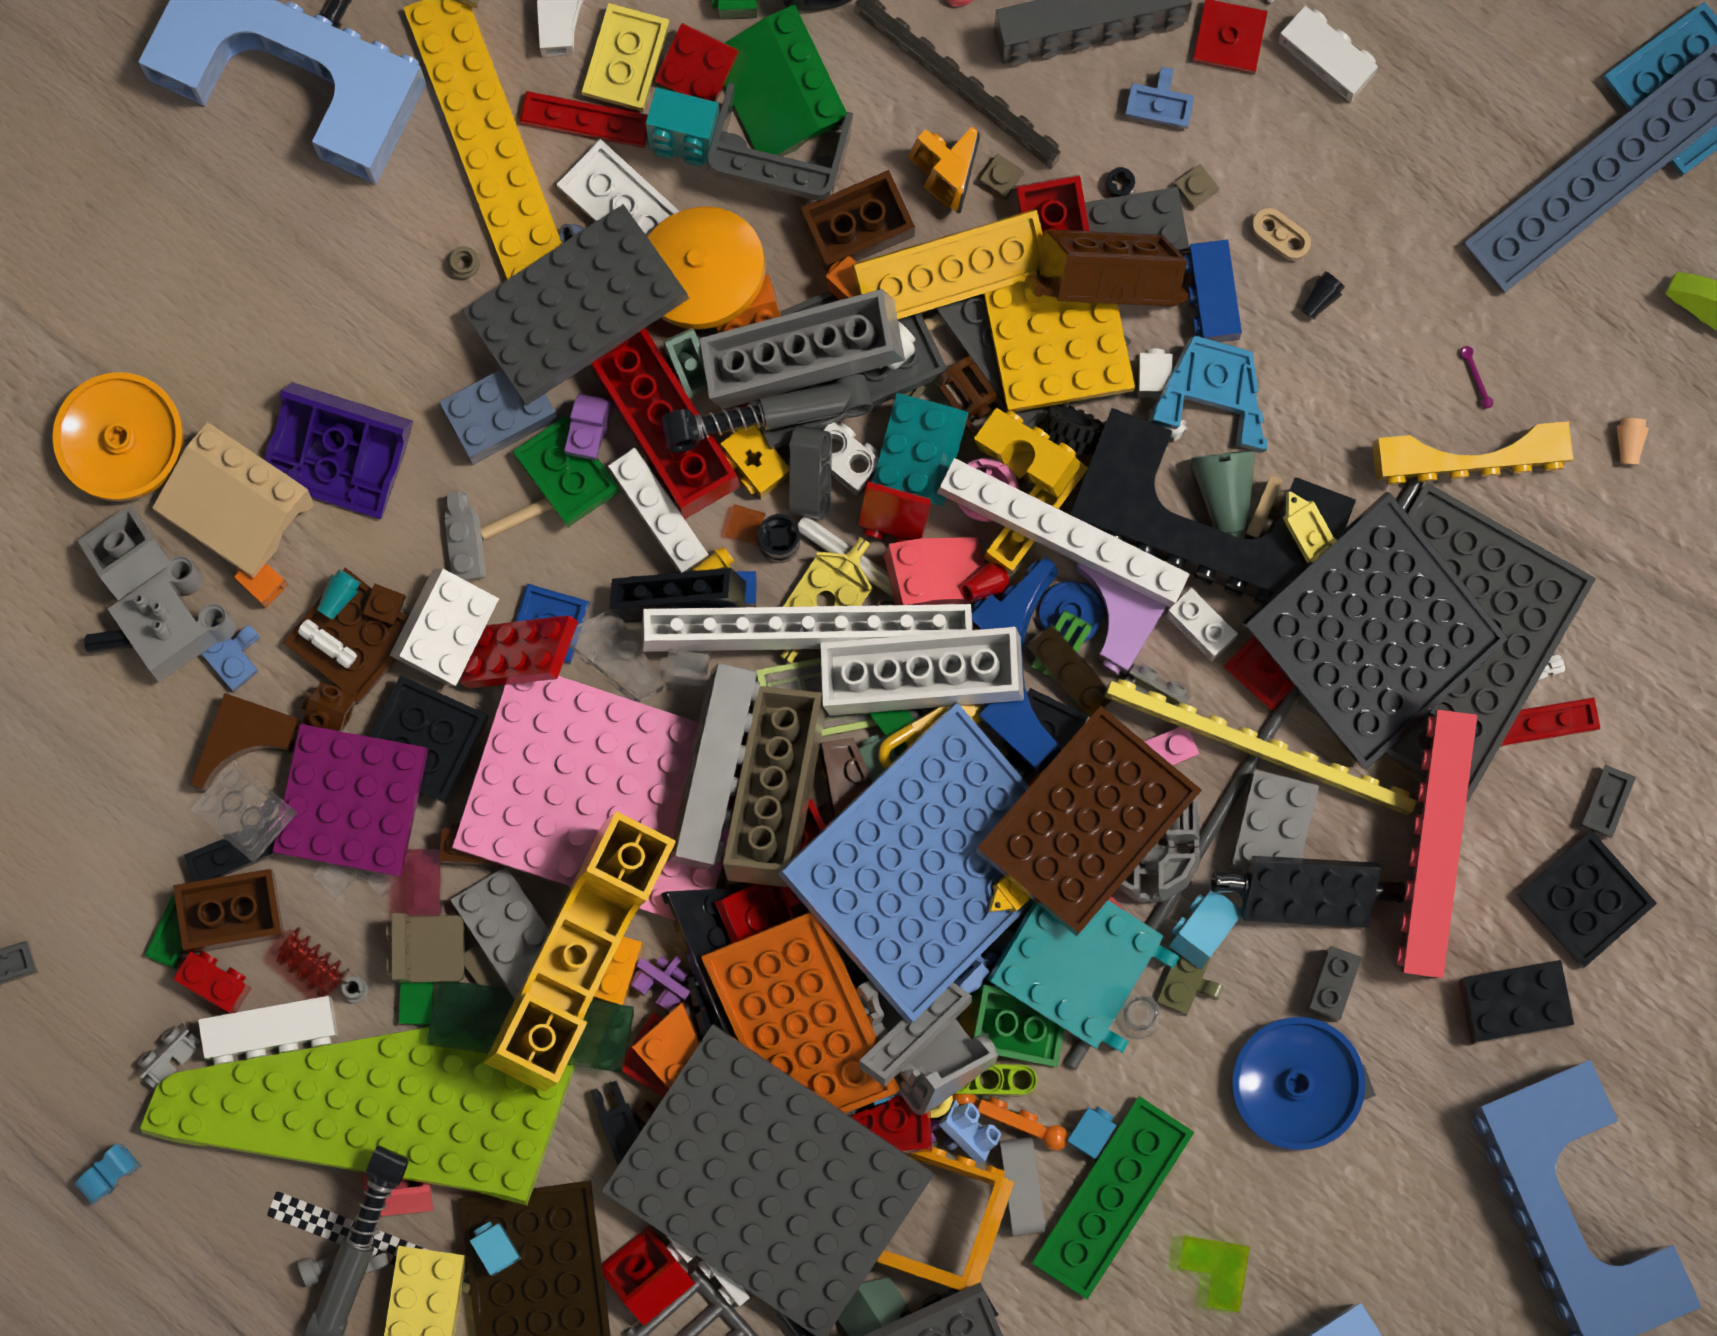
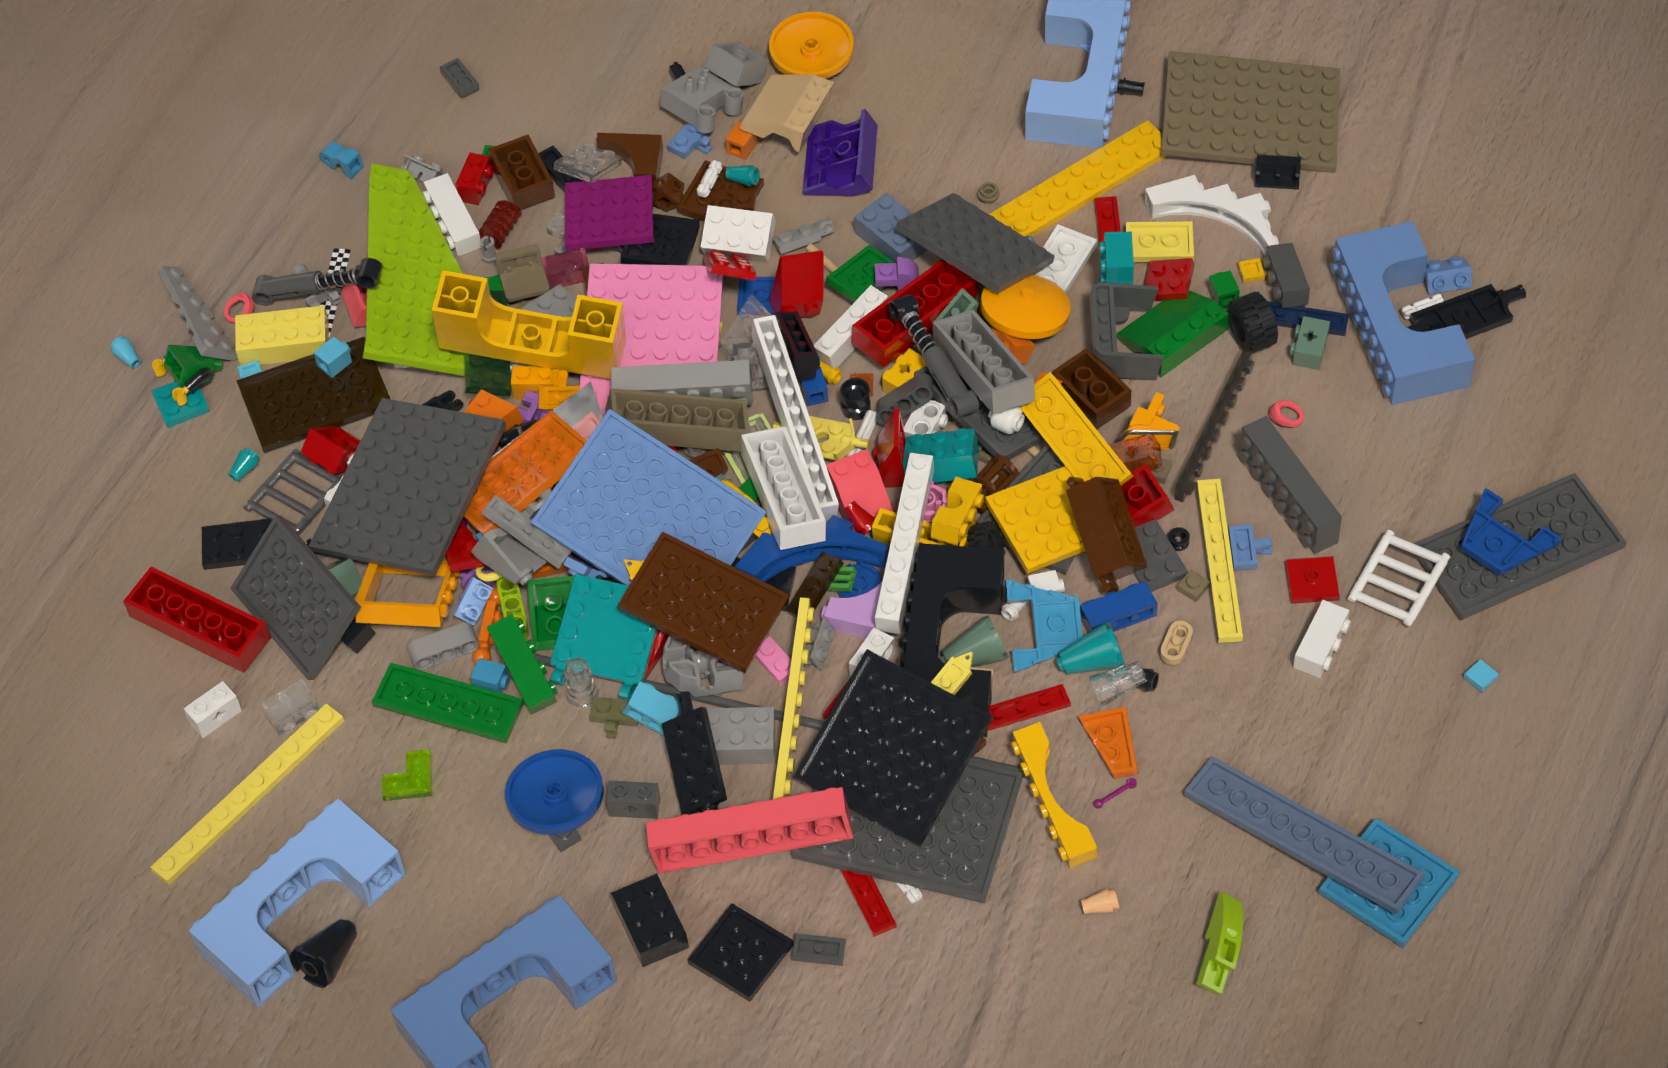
camera: 80 degrees right, 25 degrees down
(582, 567) = (799, 284): none -> red slope
(660, 940) = (554, 395): none -> light orange plate
(986, 178) = (1139, 451): none -> clear orange brick
(1093, 1085) = (521, 663): none -> green brick
(1170, 141) = (1219, 561): none -> light yellow plate
(1275, 343) = (1092, 652): none -> teal cone
(1319, 440) = (1028, 706): none -> red tile
(1332, 325) = (1117, 682): none -> clear plant
(1403, 356) = (1113, 740): none -> orange wing

